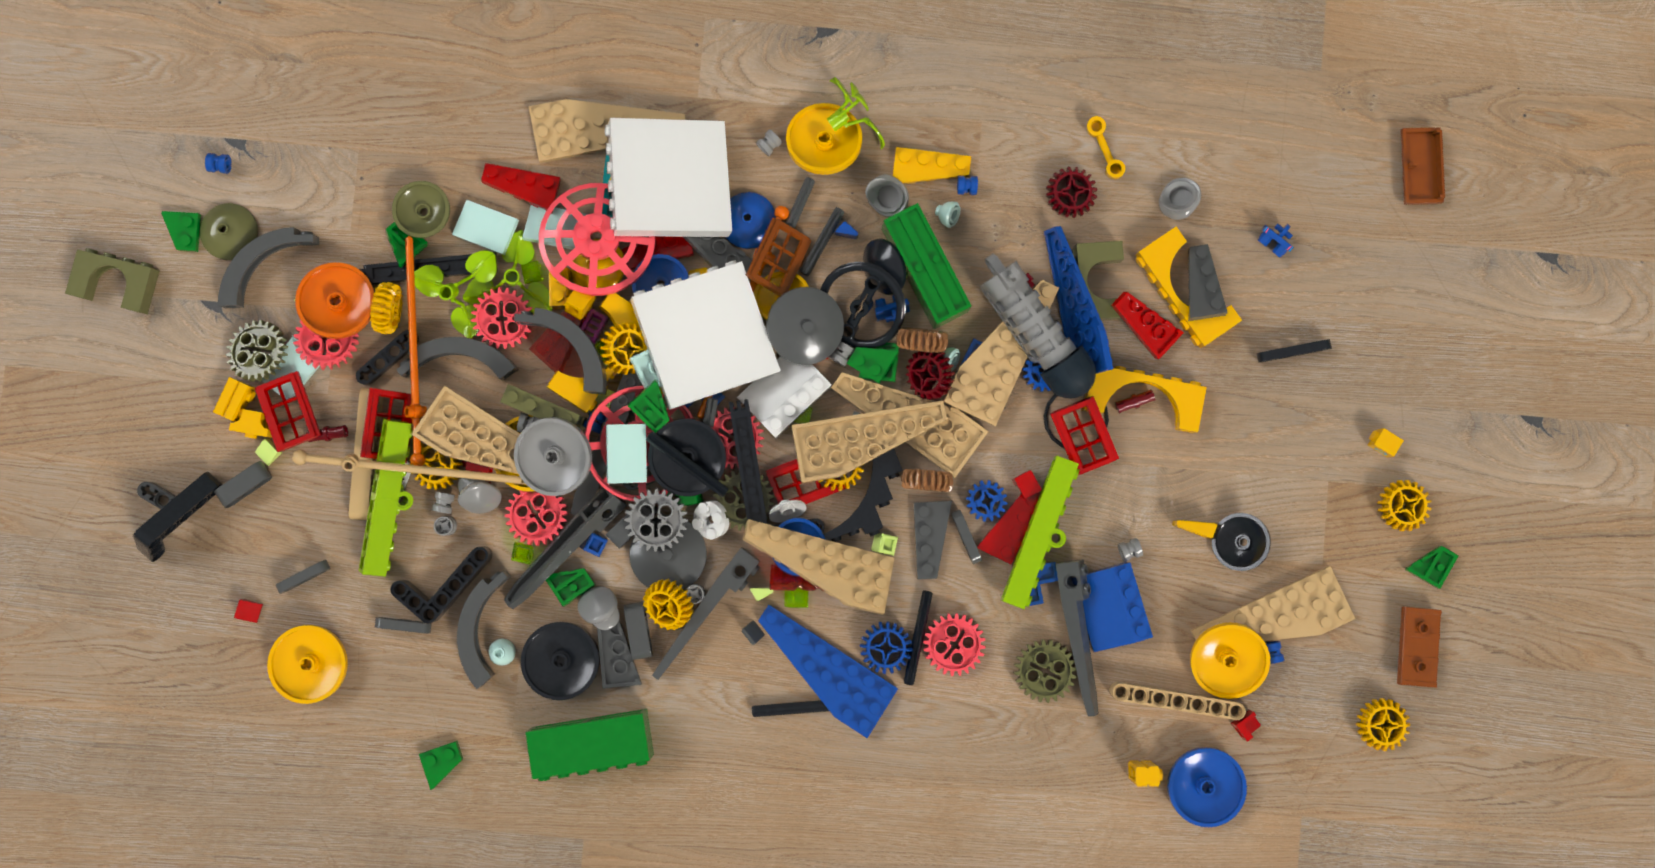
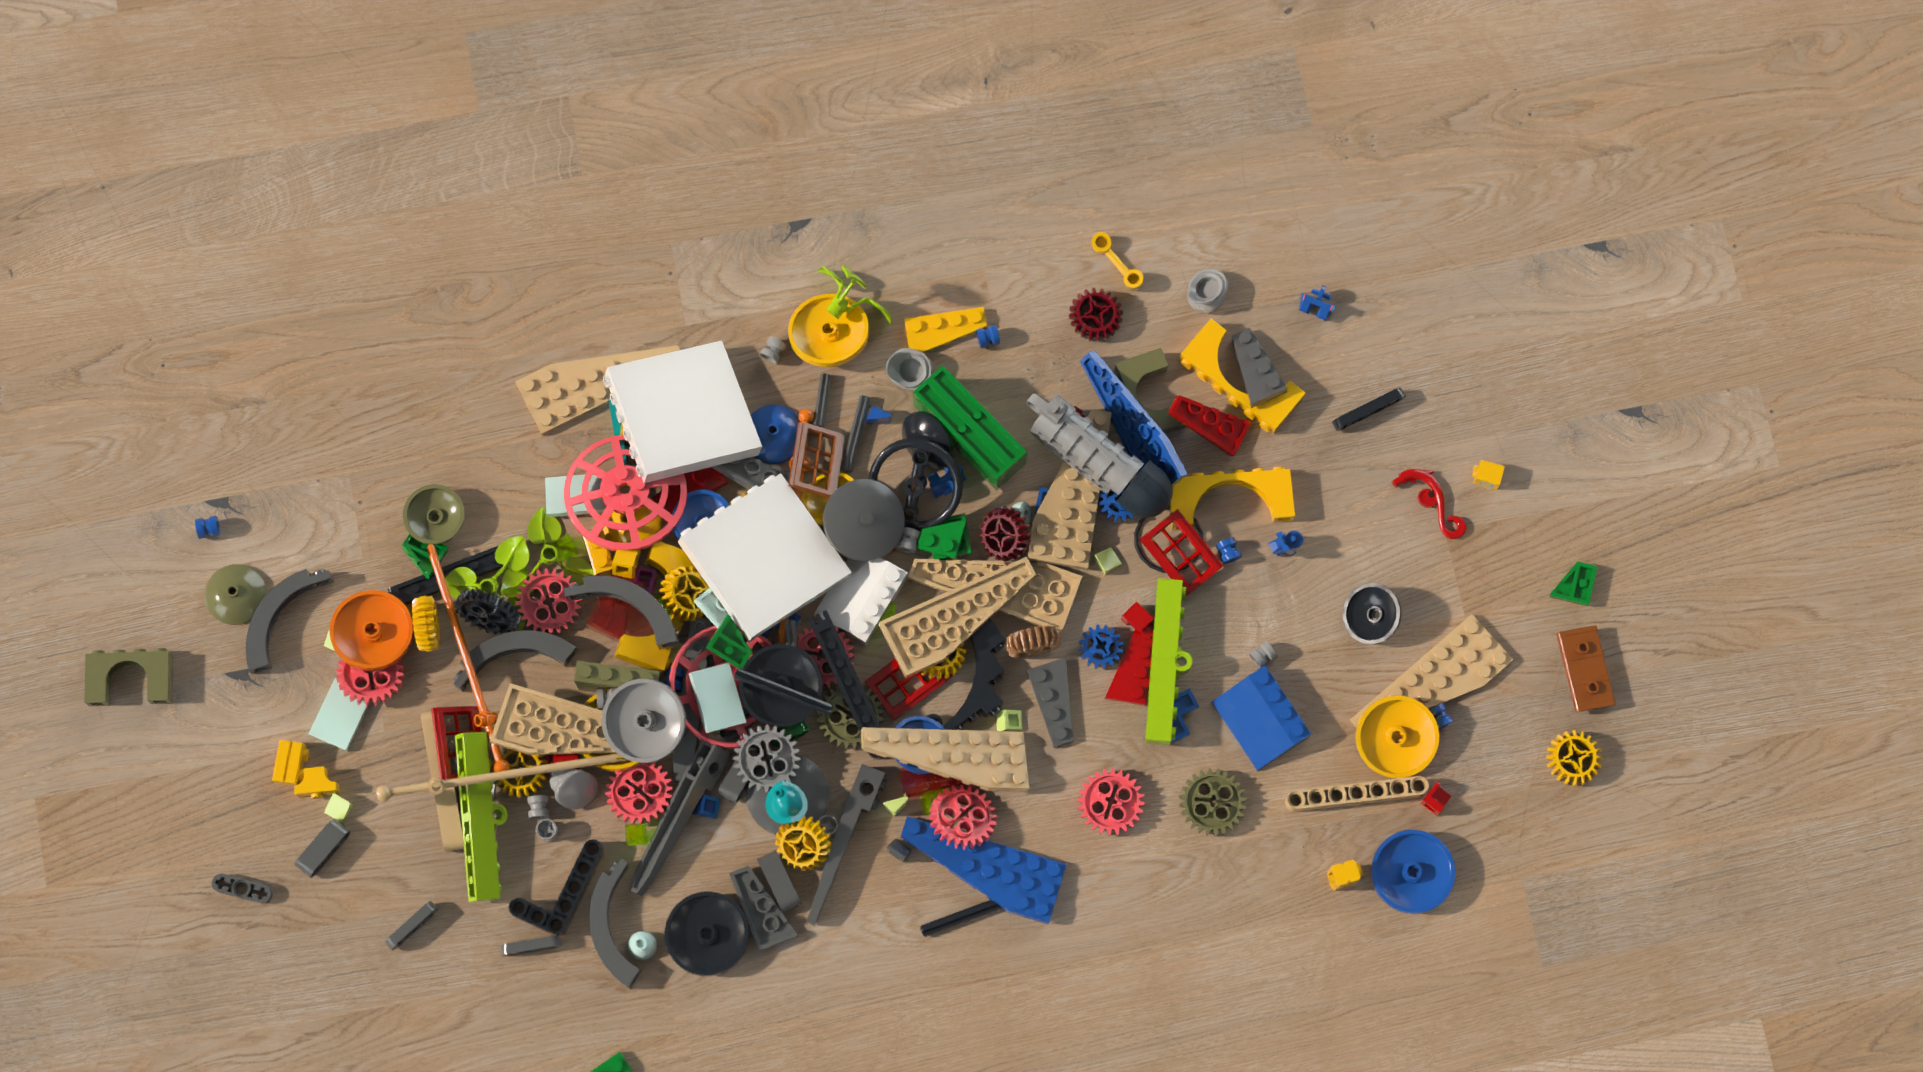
camera: 15 degrees left, 10 degrees down
(151, 534) = (259, 898): black beam -> none
(183, 229) = (188, 605): green wing -> none
(248, 610) = (363, 978): red slope -> none
(254, 367) = (299, 688): olive gear -> none
(271, 418) = (334, 769): red piece -> none
(307, 664) = (442, 1013): yellow dish -> none
(331, 433) = (396, 771): dark red pin -> none
(388, 358) = (434, 673): black beam -> none
(442, 314) = (487, 611): none -> black gear
(485, 227) = (504, 515): light aqua tile -> none
(529, 186) = (538, 461): red wing -> none
(570, 584) = (694, 854): green wing -> none
(589, 744) = (763, 1010): green brick -> none
(599, 607) = (733, 868): light grey piece -> none
(661, 566) = (786, 803): none -> teal helmet
(702, 523) = (812, 749): white plate -> none
(787, 510) = (898, 711): white dish -> none
(826, 636) = (976, 829): none -> coral gear
(895, 648) = (1032, 828): blue gear -> none
(918, 636) = (1071, 807): black axle -> none
(922, 339) = (986, 501): medium nougat gear -> none
(948, 213) = (977, 369): light aqua brick -> none
(966, 537) = (1091, 689): dark grey beam -> none
(1015, 422) = (1107, 560): none -> yellowish green slope
(1072, 603) = (1223, 732): dark grey piece -> none
(1127, 445) = (1228, 550): none -> blue wheel
(1135, 401) = (1223, 504): dark red pin -> none
(1183, 454) = (1286, 543): none -> blue hips
(1199, 528) = (1325, 613): yellow slope -> none
(1331, 451) = (1425, 475): none -> red plant
(1413, 518) = (1521, 526): yellow gear -> none
(1423, 166) = (1441, 191): dark orange container -> none

